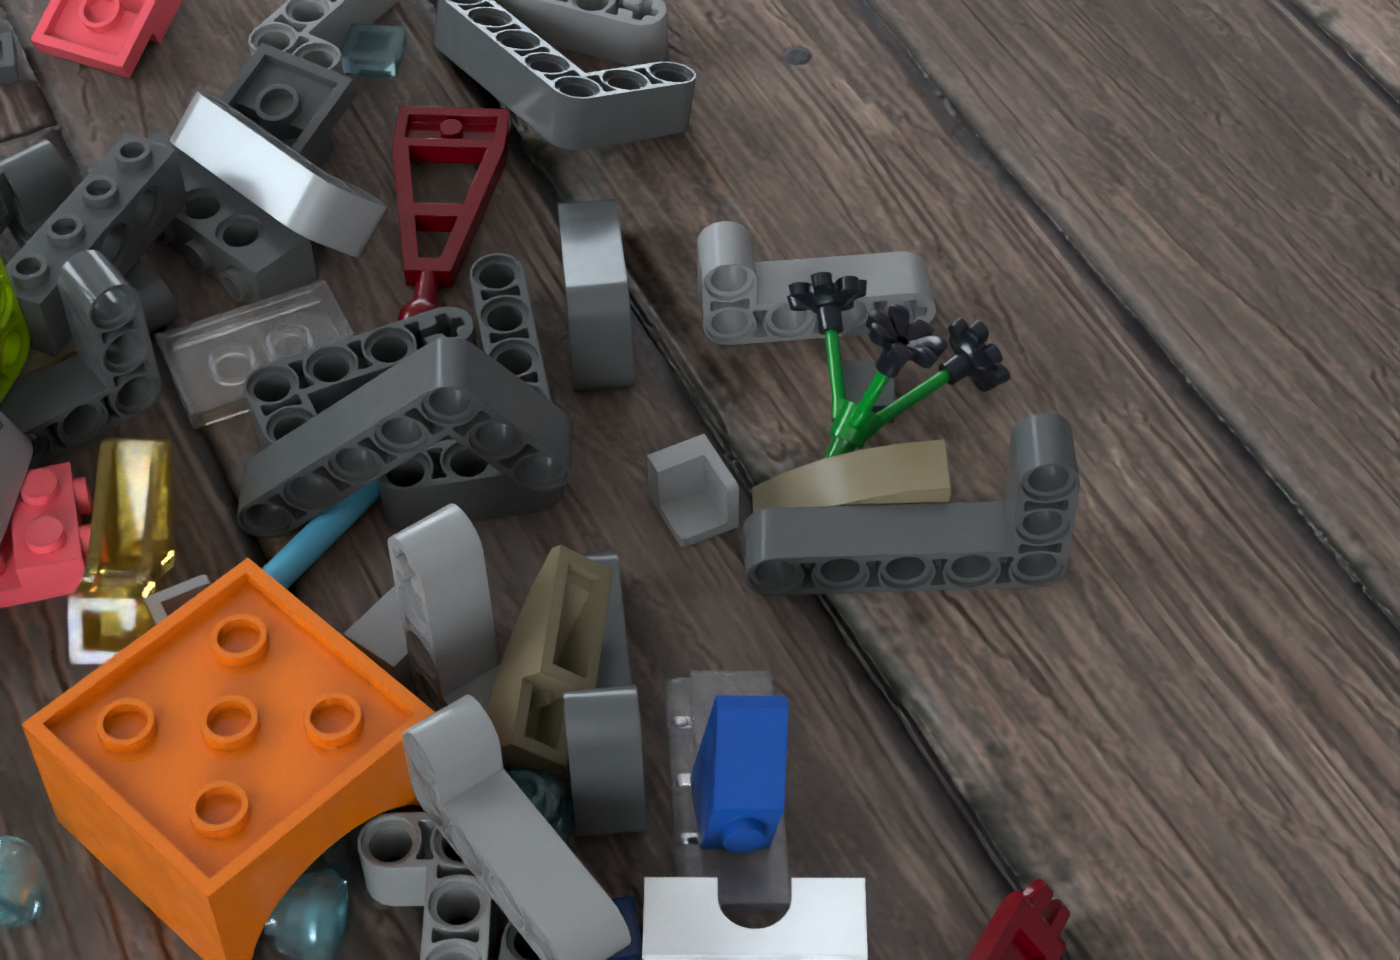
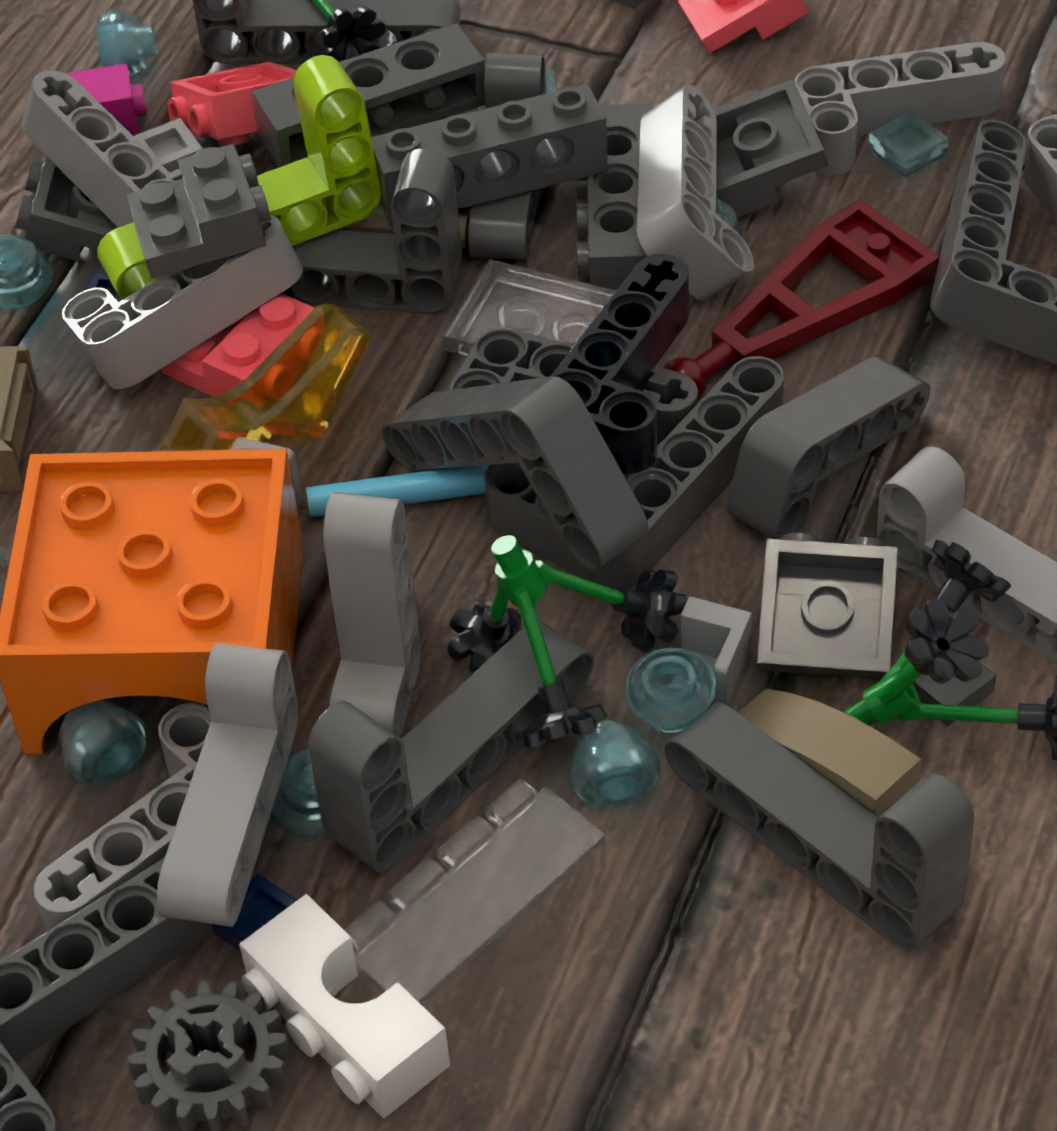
camera: 50 degrees right, 0 degrees up
(384, 299) = (623, 350): none -> black beam
(548, 653) = (433, 672): dark tan slope -> none
(616, 493) = (525, 583): none -> black plant
(706, 531) = (670, 688): none -> clear light blue cone
(726, 614) = (613, 766): none -> clear light blue cone
(737, 394) = (827, 606): none -> plate
(741, 773) = (448, 878): blue slope -> none

